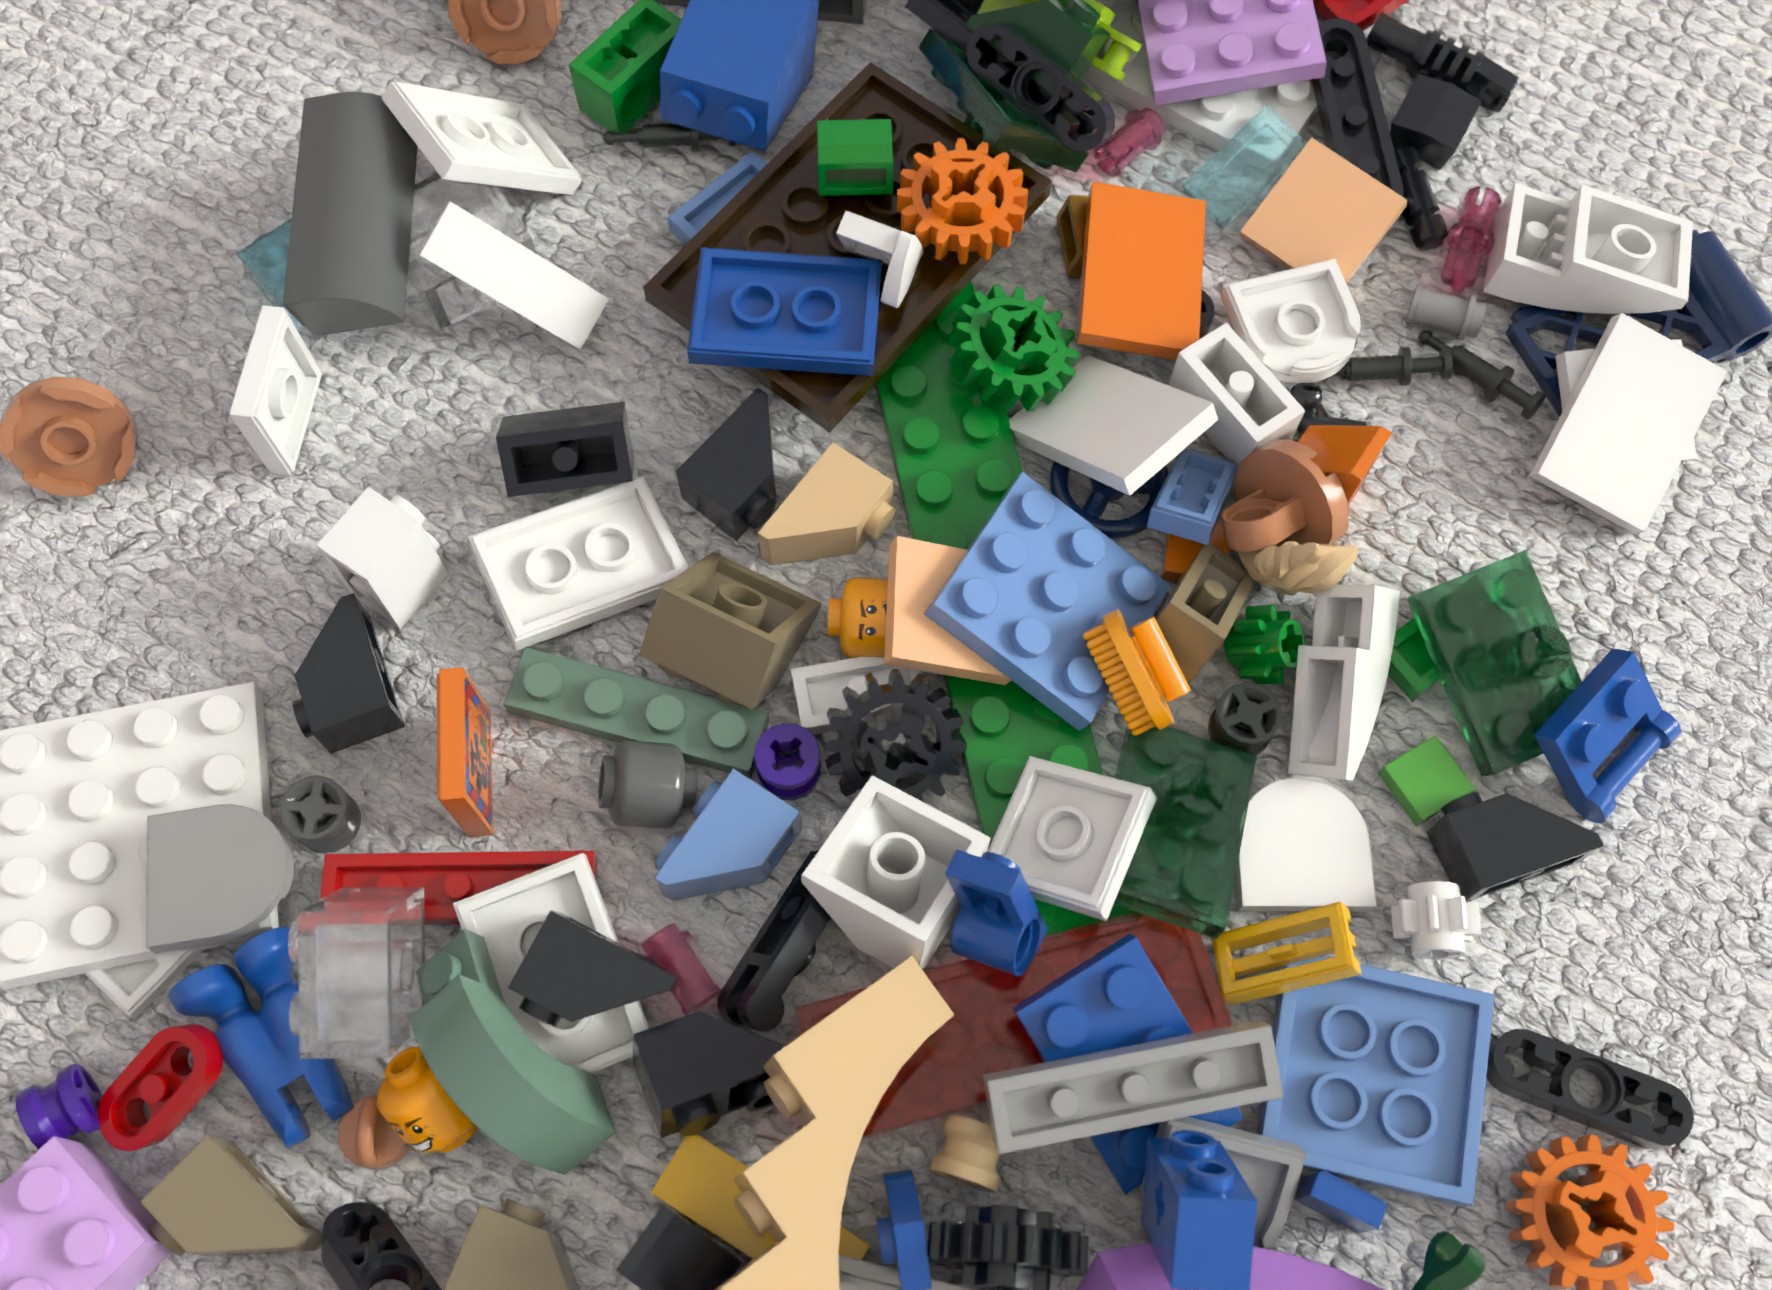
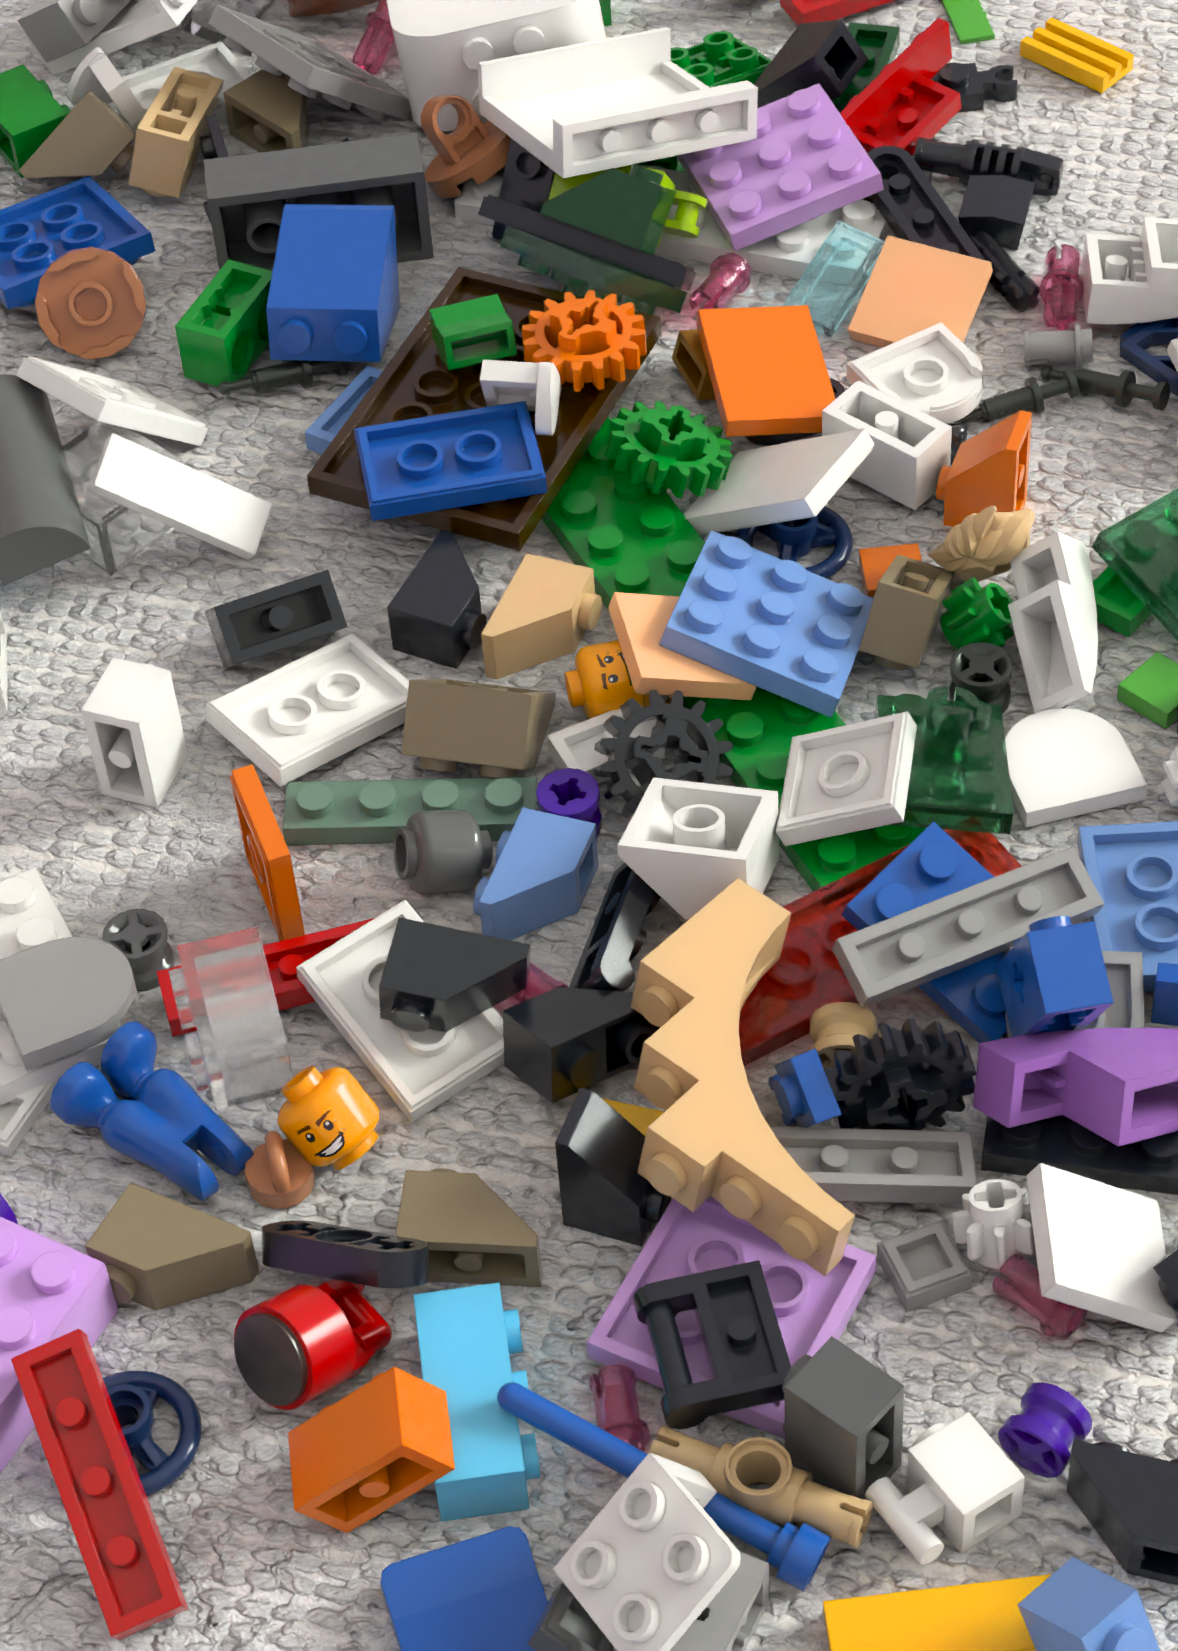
camera: 10 degrees left, 20 degrees down
(165, 1082) = (63, 1175): red plate -> none
(346, 682) = (130, 845): black slope -> none
(495, 1071) = (395, 1060): sand green arch -> none
(997, 75) = (584, 243): black beam -> none
(997, 913) = (803, 838): blue plate -> none
(1137, 670) = (868, 649): light orange piece -> none
(1193, 496) = (873, 523): medium blue plate -> none
(1284, 500) = (953, 486): nougat tile -> none
(1293, 978) = (1080, 819): yellow tile -> none

